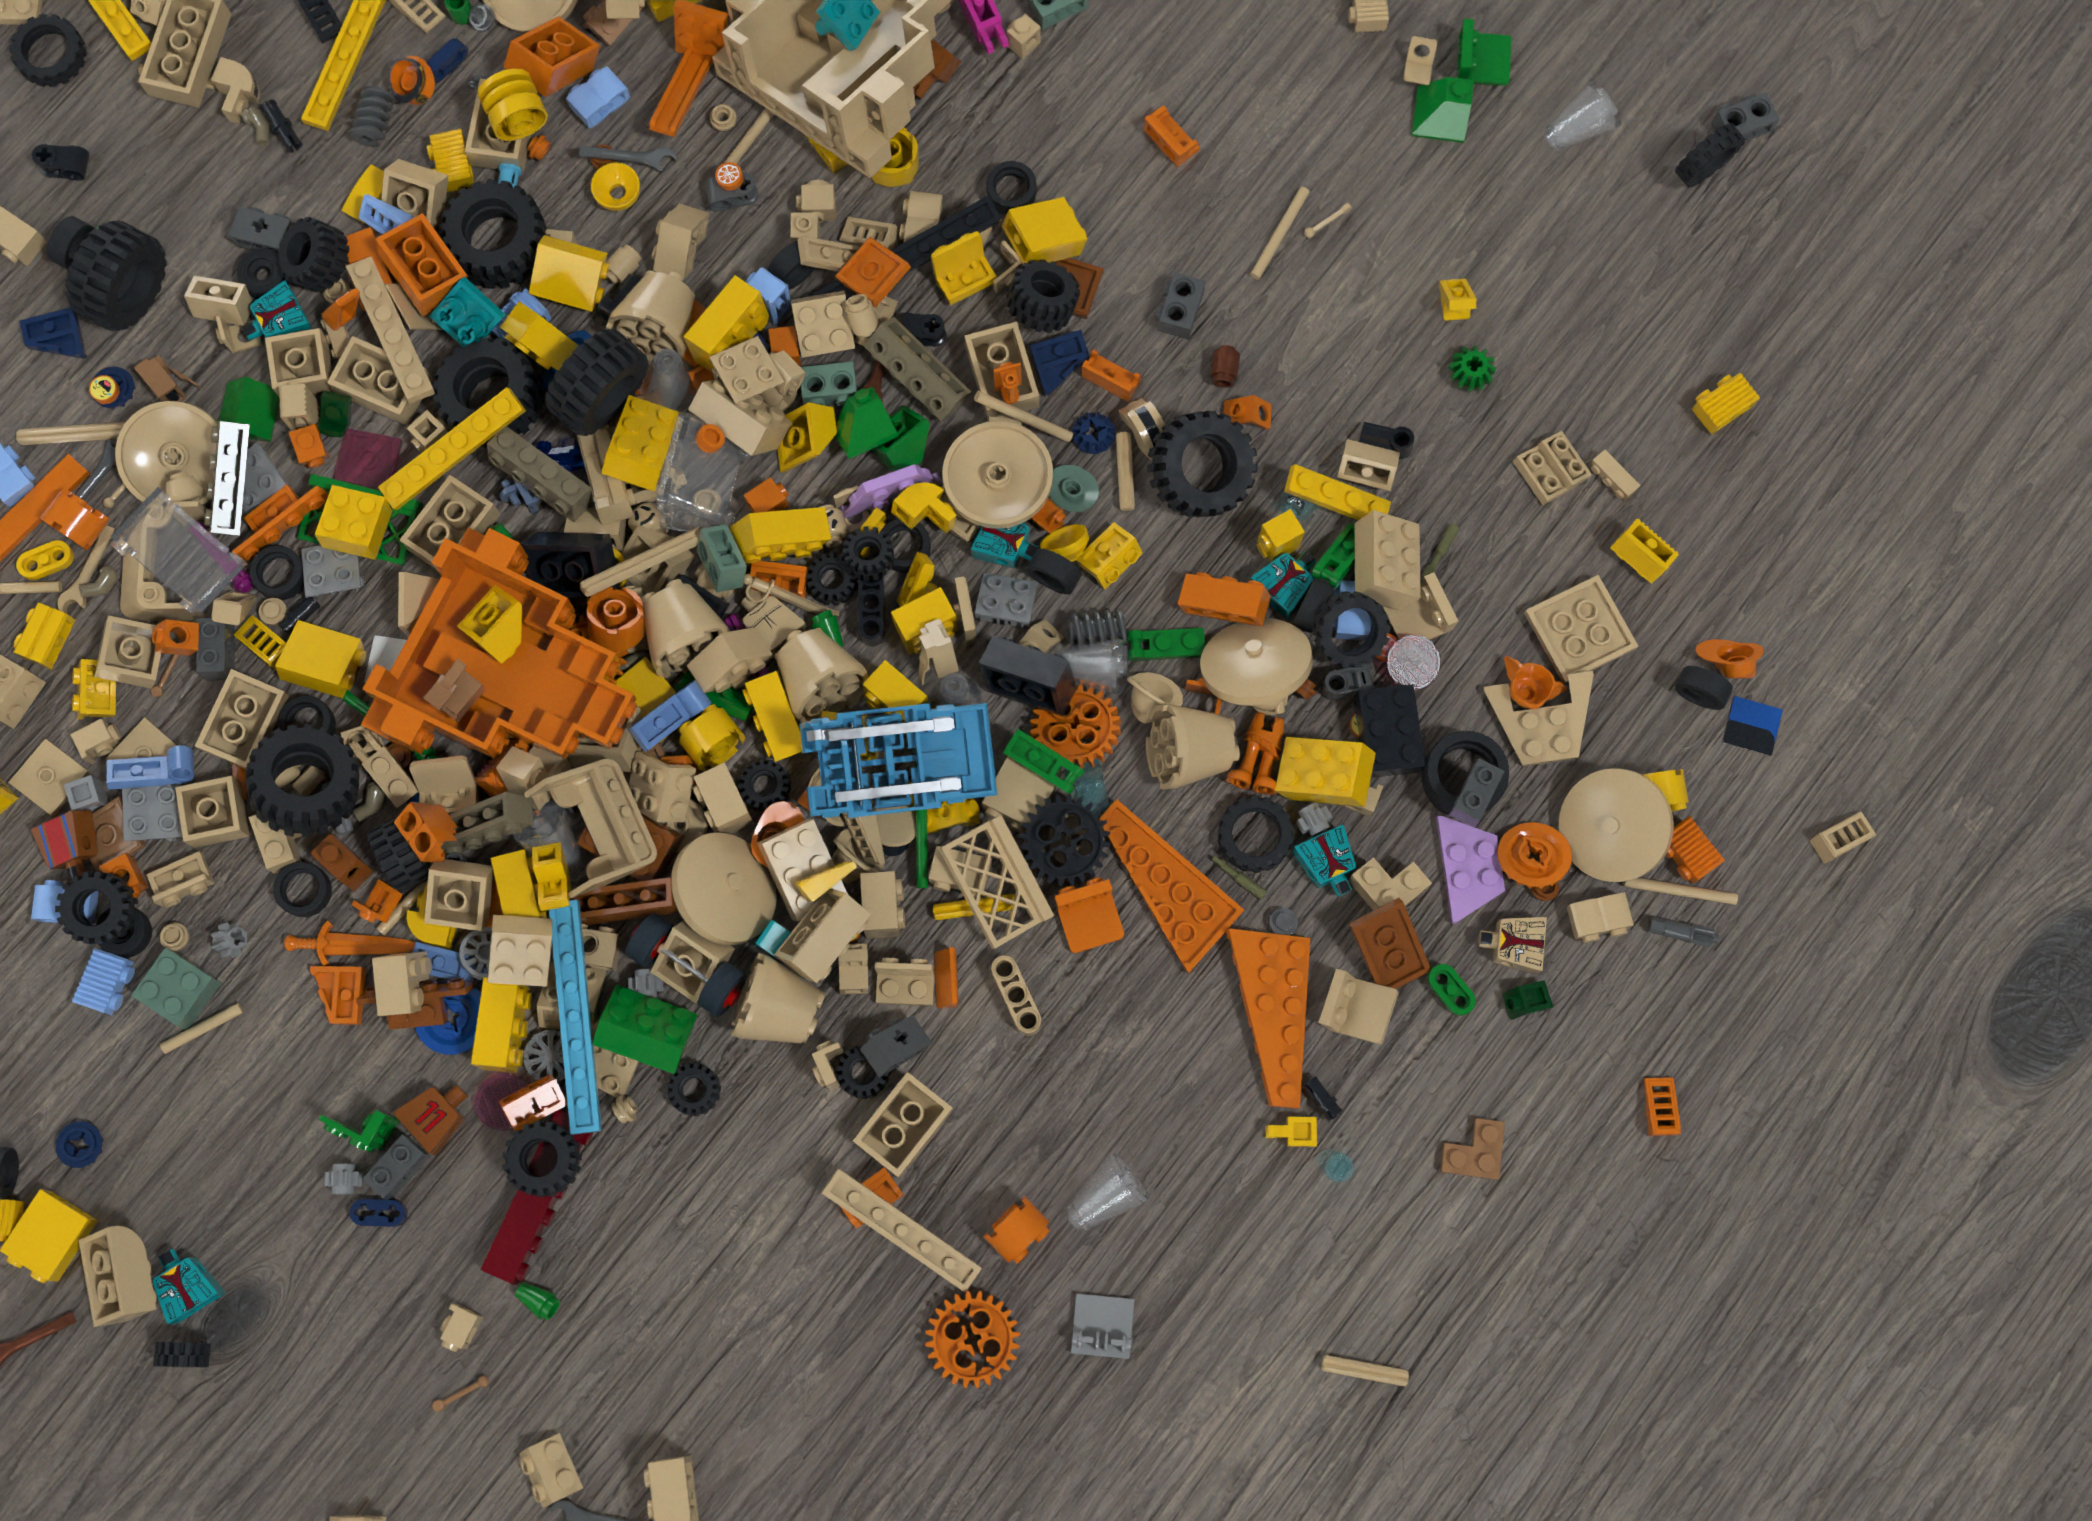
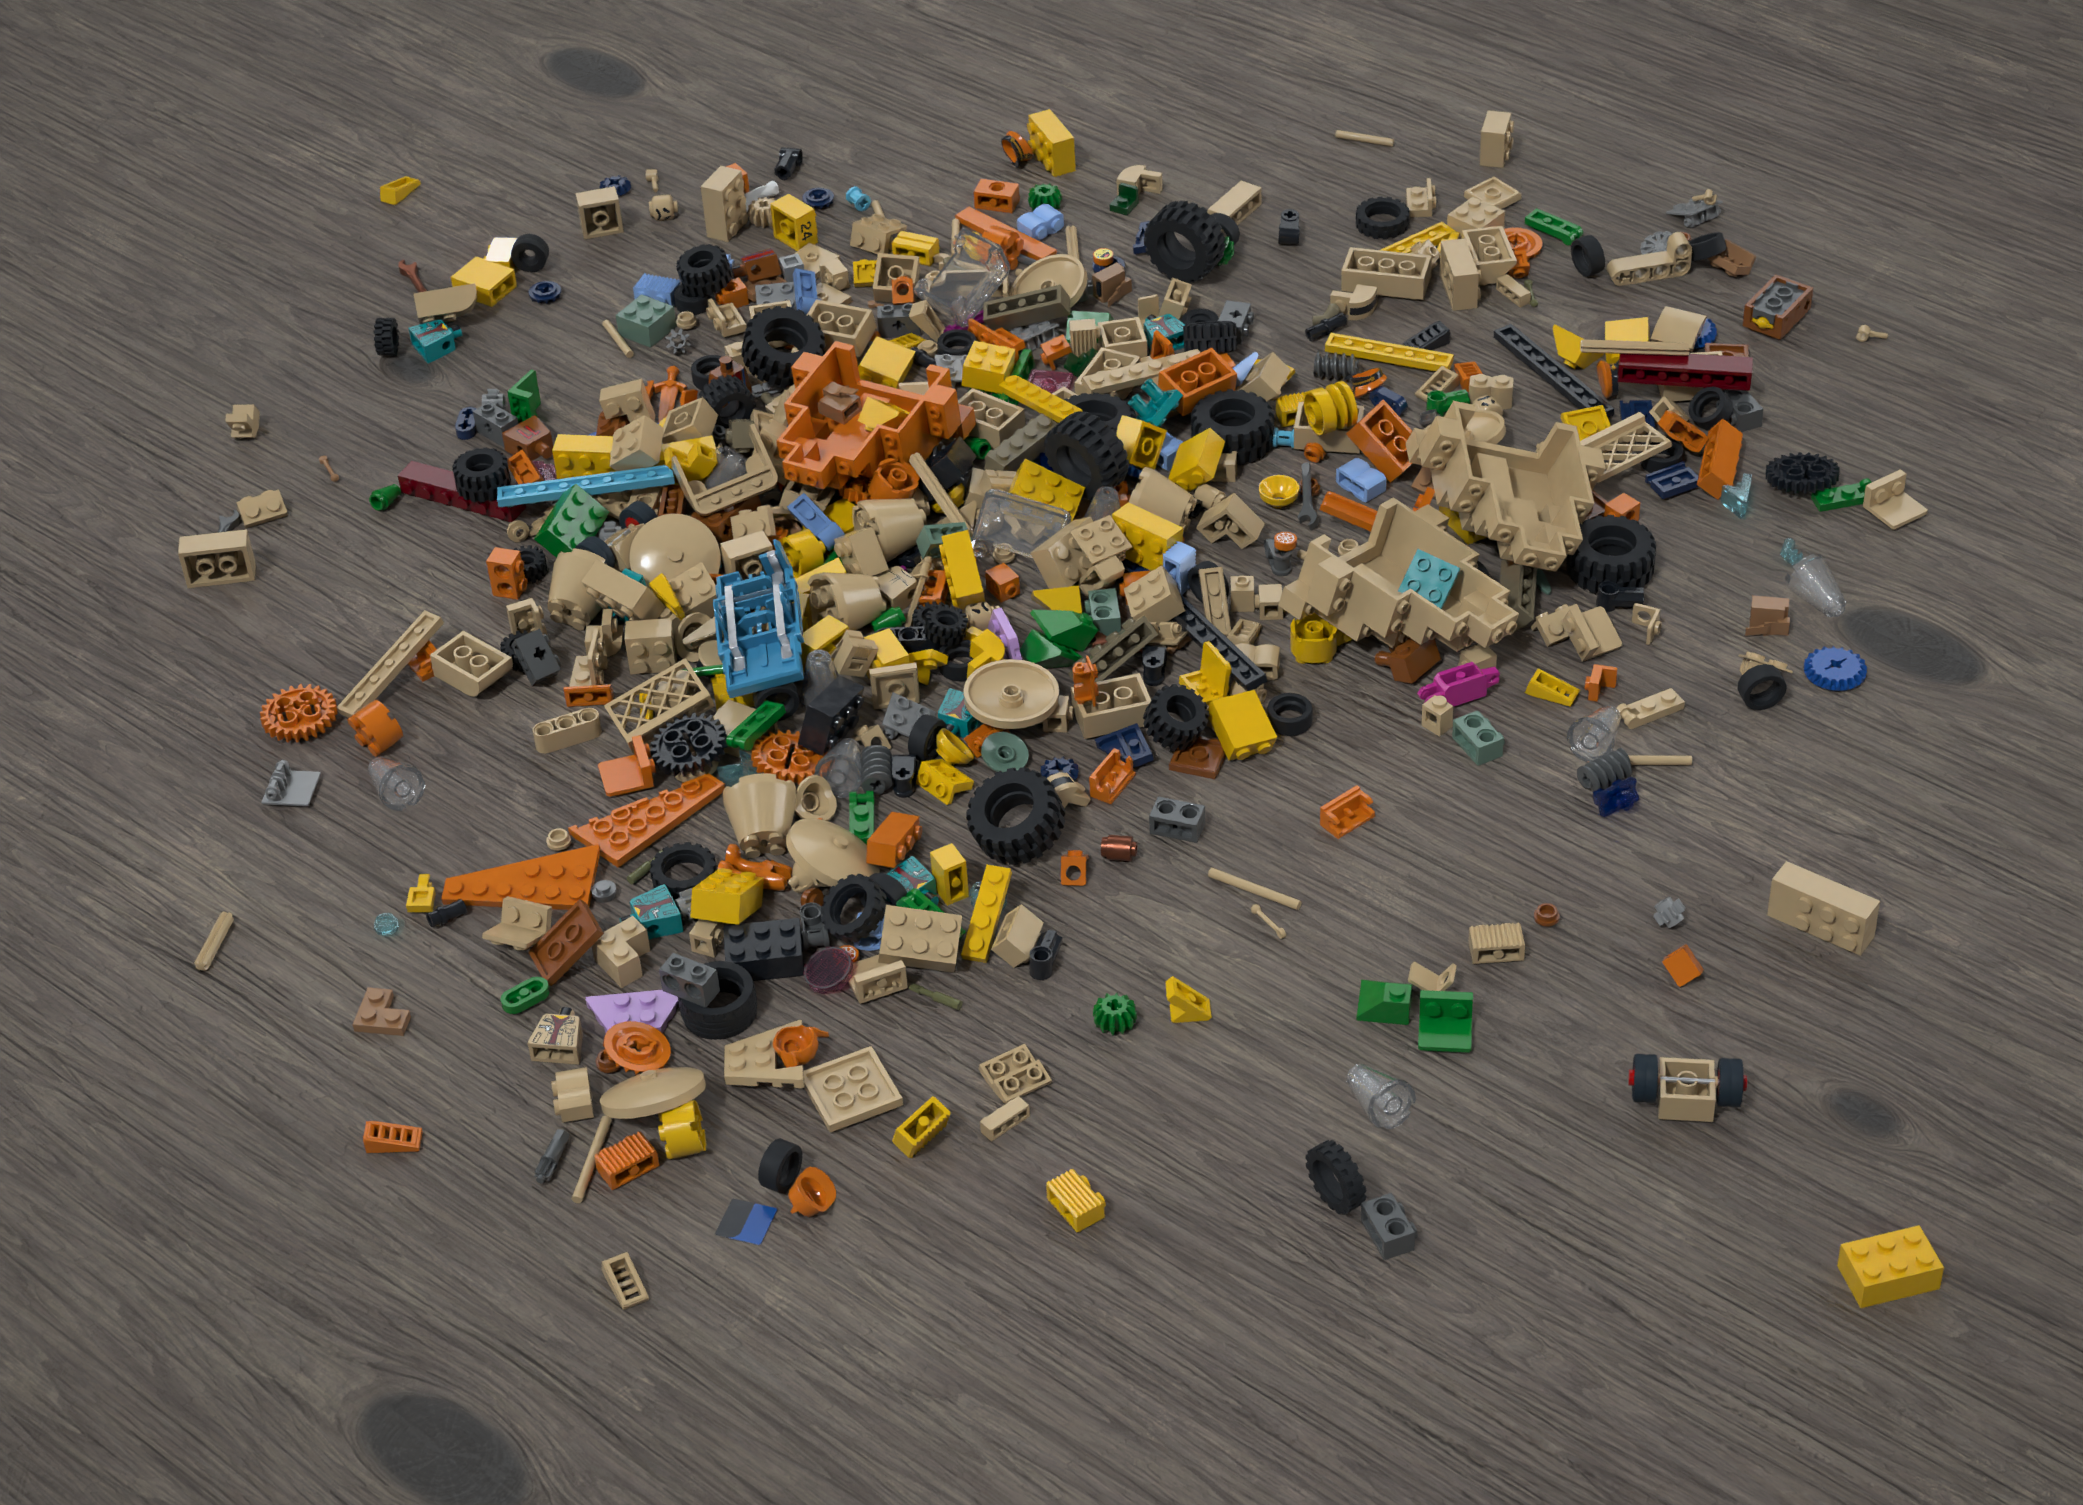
camera: 95 degrees right, 35 degrees down
(183, 487) = (1018, 286): tan cone -> none
(424, 827) = (734, 401): orange piece -> none
(459, 1328) = (375, 461): tan brick -> none
(710, 438) = (1044, 527): orange tile -> none
(729, 1104) = (506, 573): none -> orange brick
(861, 315) = (1154, 606): tan brick -> none
(873, 271) = (1197, 618): orange tile -> none
(1023, 416) = (1064, 719): tan bar -> none
(1098, 597) = (904, 774): none -> black piece
(1200, 984) = (558, 839): none -> tan plate
(1527, 999) = (507, 1045): dark green bracket -> none

